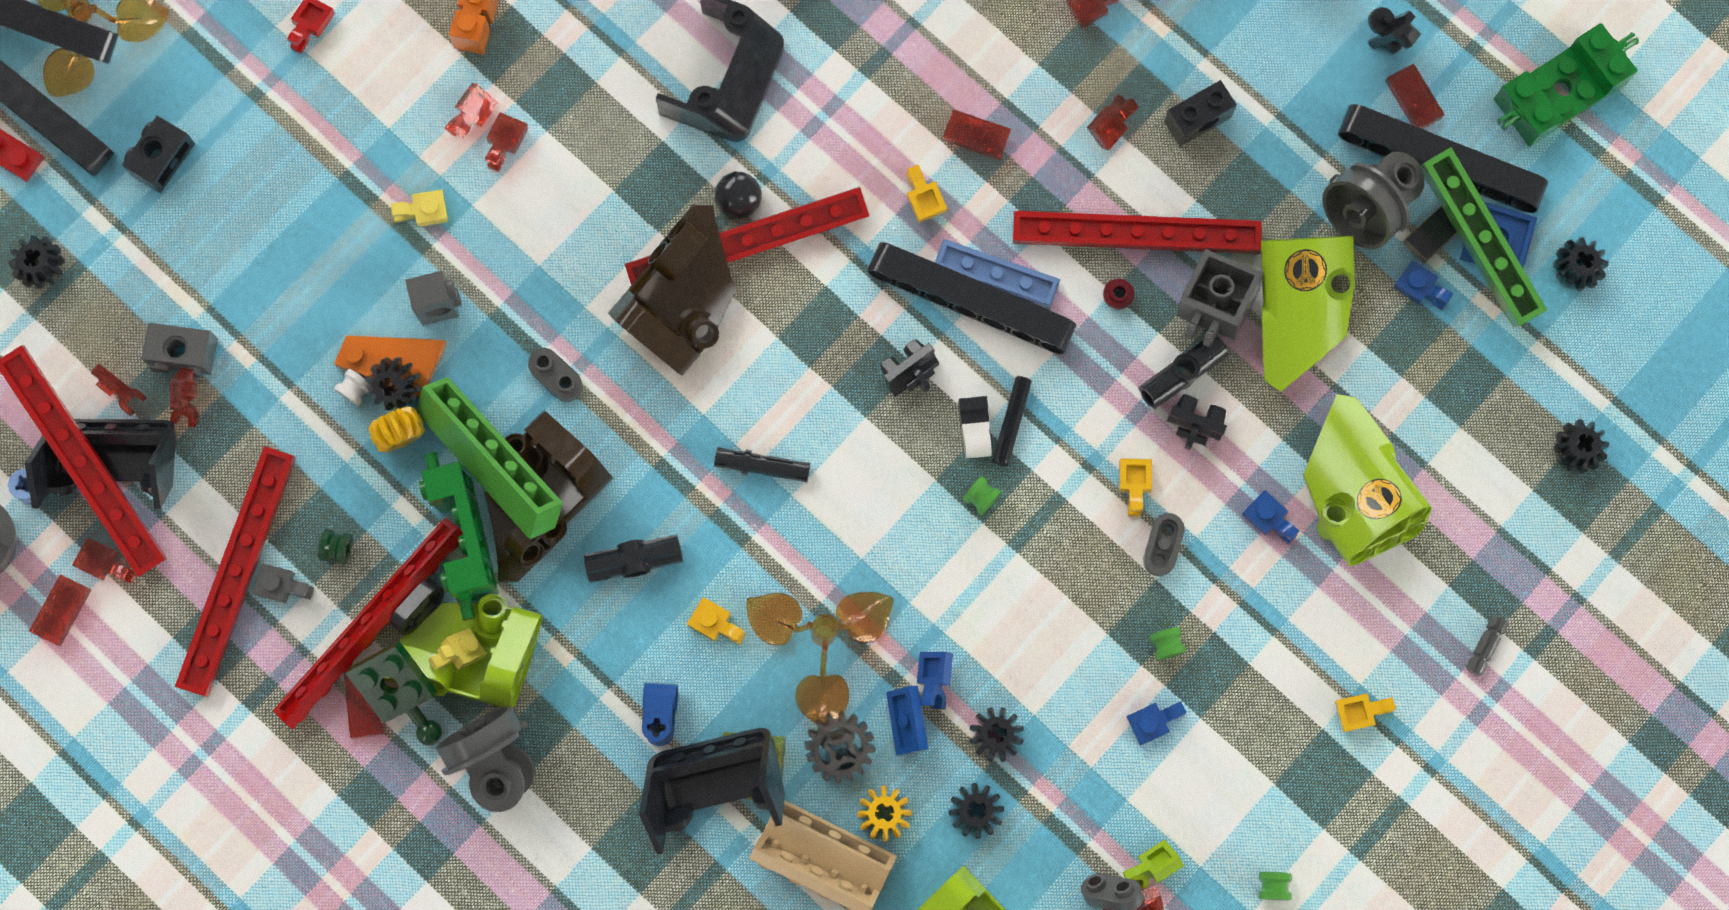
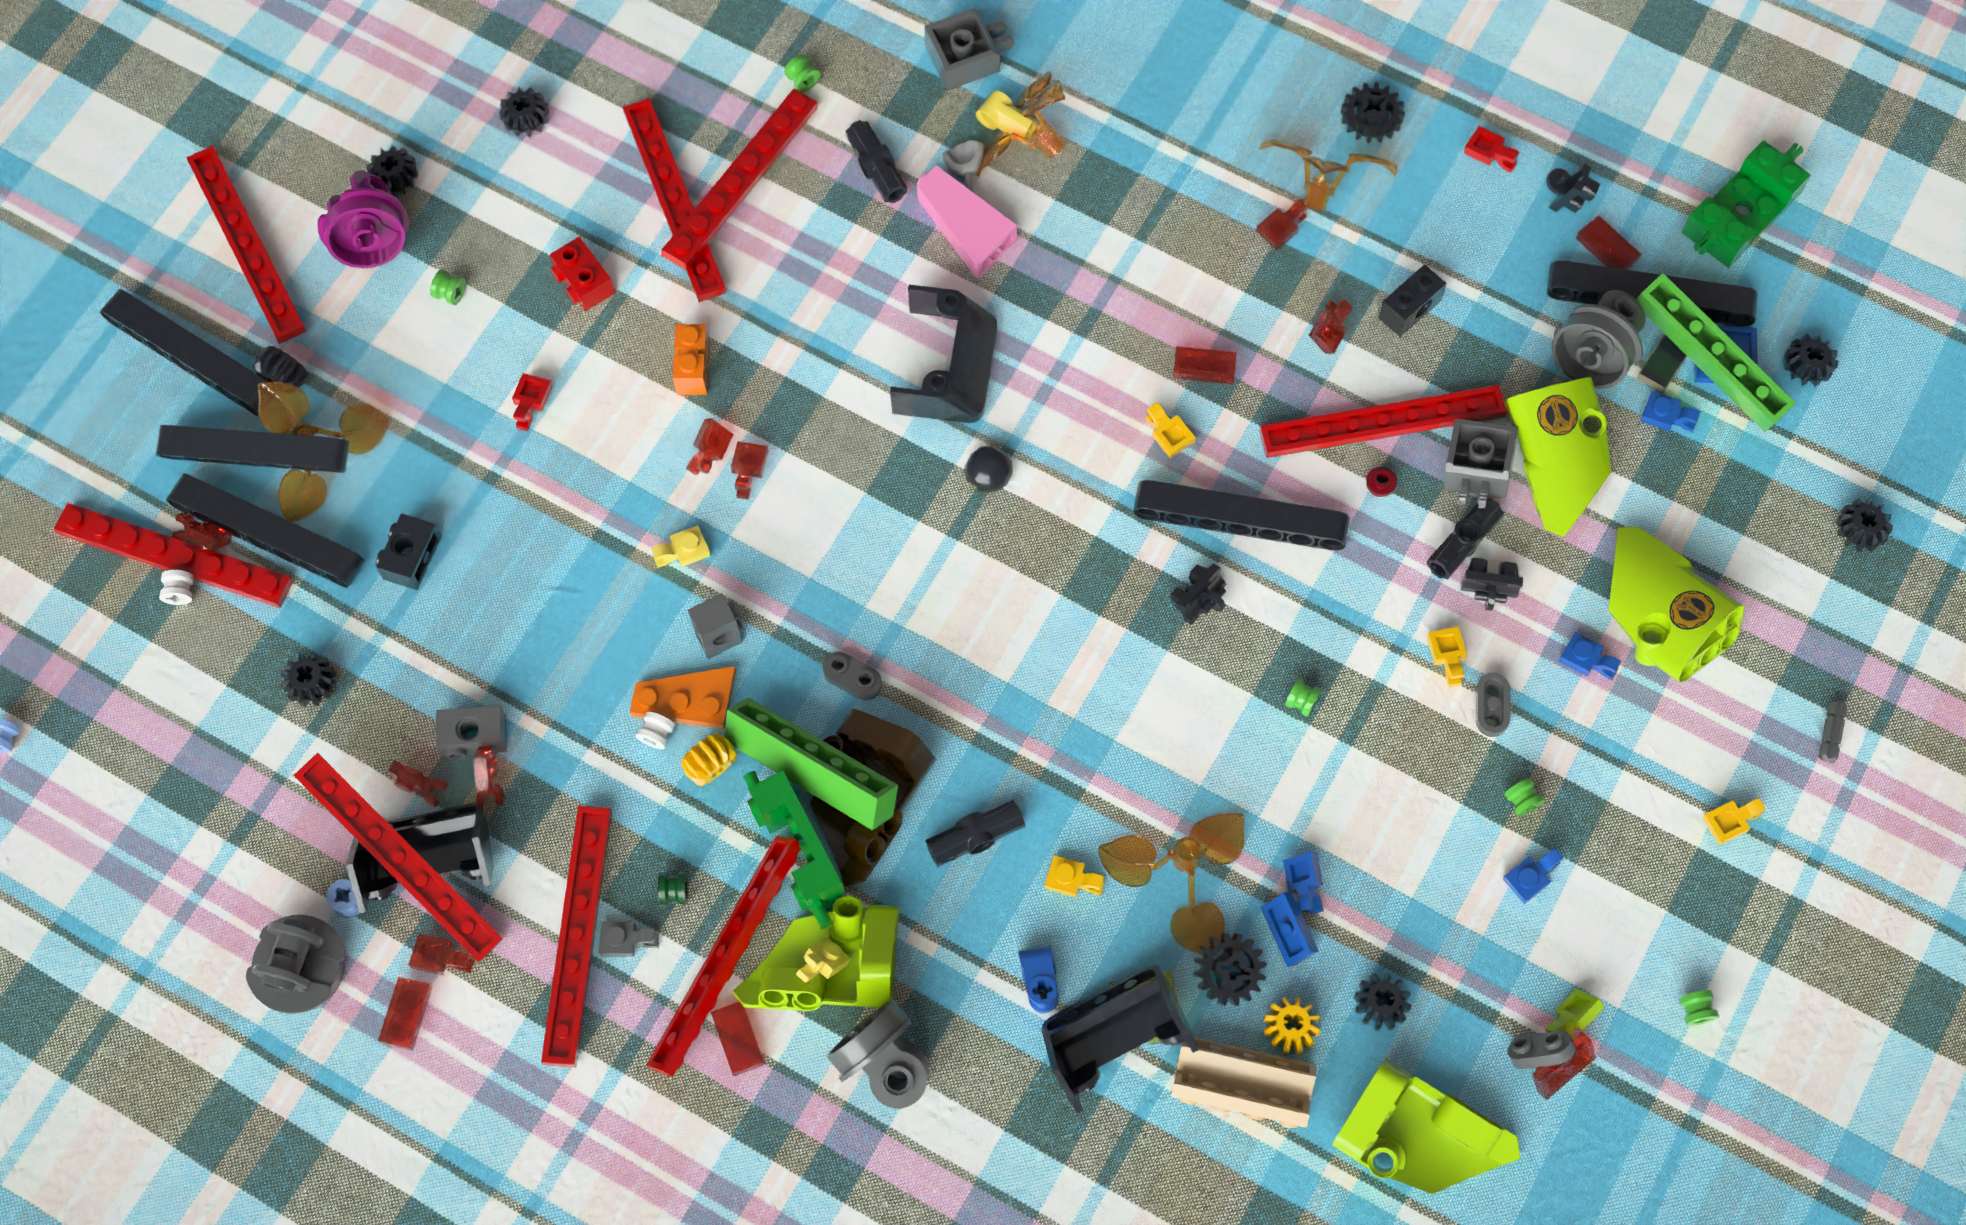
camera: 10 degrees left, 10 degrees down
(391, 702) = (768, 1026): dark green plate -> none
(400, 377) = (687, 722): black gear -> none
(417, 606) = (770, 928): black beam -> none
(680, 292) = (957, 569): dark brown panel -> none
(761, 464) = (1079, 715): black pin -> none
(782, 227) = (1008, 508): red plate -> none
(975, 426) = (1278, 633): leg -> none
(990, 743) = (1378, 933): black gear -> none
(999, 273) = (1265, 486): medium blue tile -> none
(1012, 421) = (1312, 622): black axle -> none

